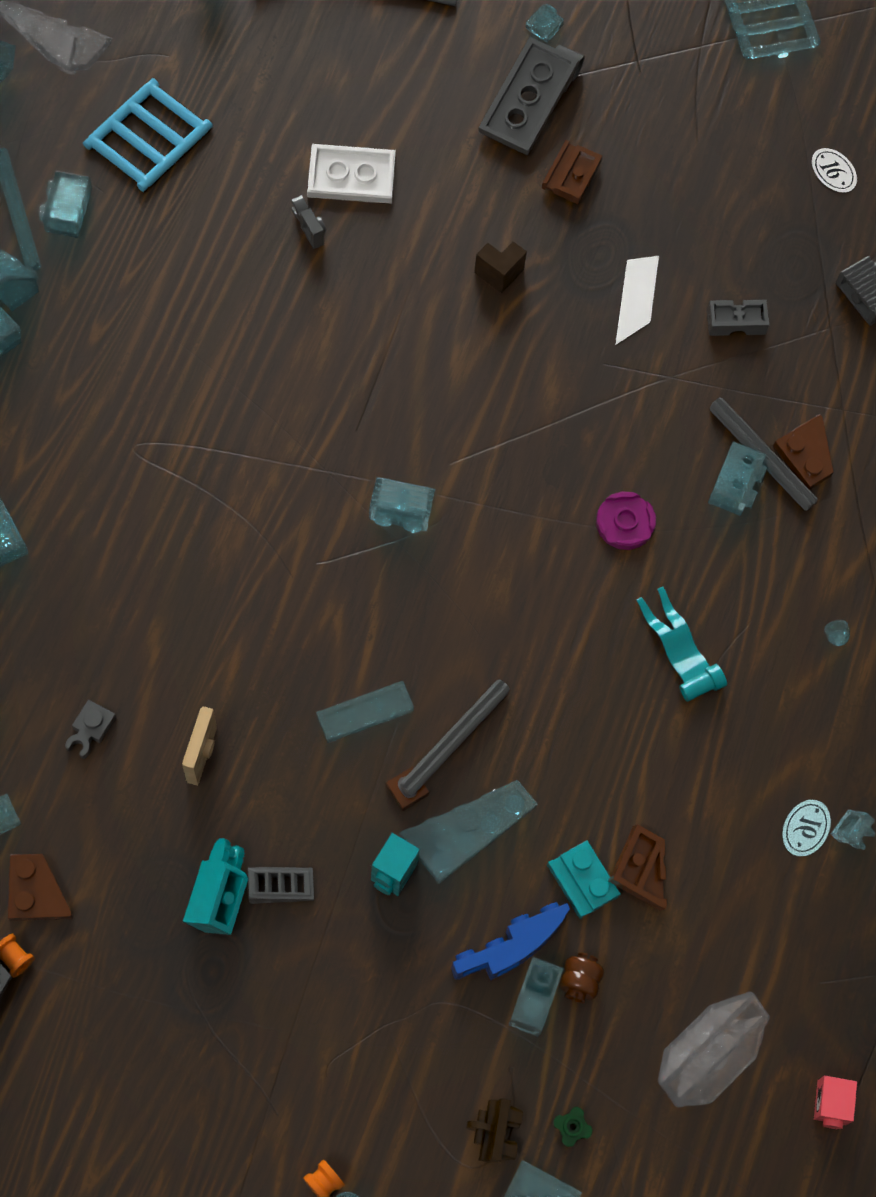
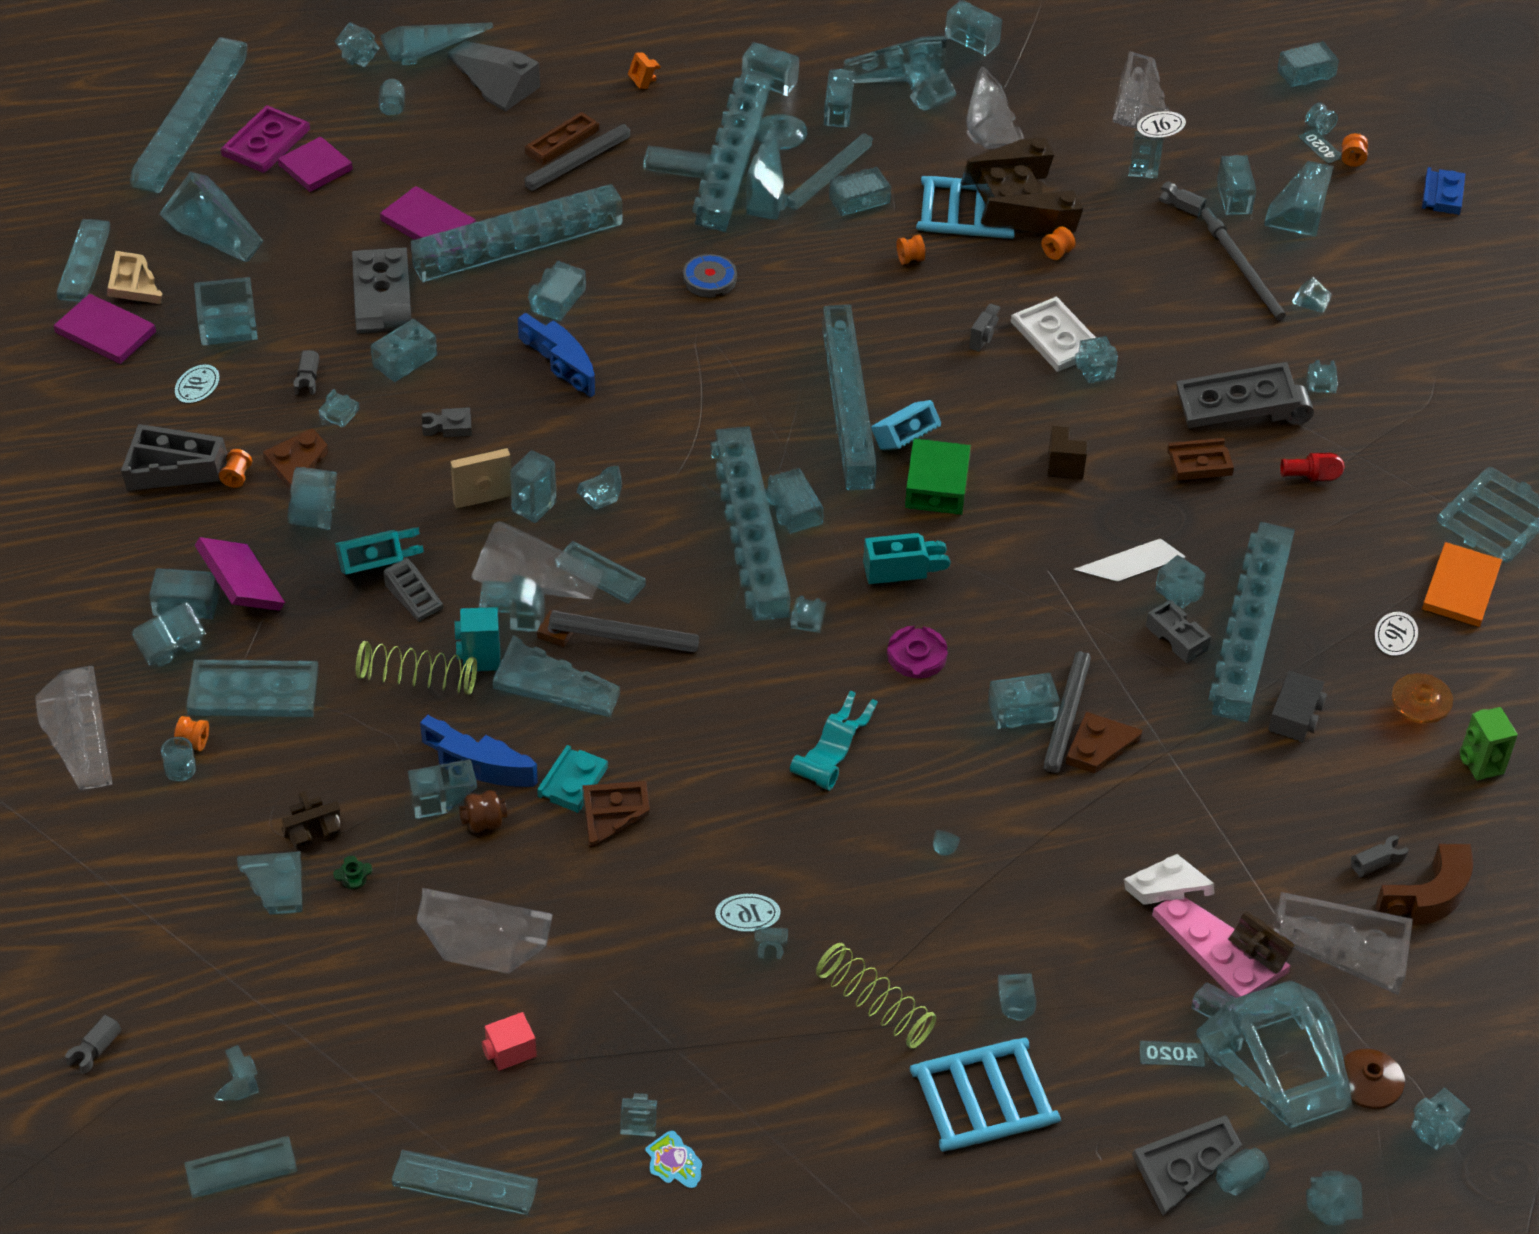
camera: 60 degrees right, 20 degrees down
(71, 392) = (709, 275): none -> dark grey tile
(93, 576) = (564, 351): none -> blue slope
(114, 909) = (312, 498): none -> clear light blue brick
(146, 1093) = (176, 587): none -> clear light blue brick
(161, 1030) = (239, 574): none -> magenta tile
(172, 213) = (911, 249): none -> orange wheel
(173, 89) = (1012, 193): none -> dark brown wedge
(191, 1137) = (168, 634): none -> clear light blue brick
(242, 706) = (533, 486): none -> clear light blue brick
(253, 98) = (1058, 243): none -> orange wheel
(275, 650) = (602, 489): none -> clear light blue plate
(303, 1095) = (253, 688): none -> clear light blue plate
(316, 768) = (519, 553): none -> clear wedge
(317, 382) = (848, 398): none -> clear light blue brick
(345, 982) = (472, 660): none -> yellowish green piece
(366, 807) = (519, 598): none -> clear light blue brick
(384, 361) = (905, 425): none -> medium azure brick
(413, 166) = (1097, 359): none -> clear light blue brick
(419, 551) = (751, 524): none -> clear light blue brick
(453, 375) = (937, 476): none -> green brick
(530, 467) = (902, 558): none -> teal hinge
(530, 577) = (808, 614): none -> clear light blue tile
(639, 100) = (1315, 467): none -> red arm
(697, 280) = (1180, 581): none -> clear light blue brick
(780, 261) = (1253, 622): none -> clear light blue brick
(821, 91) = (1462, 584): none -> orange tile

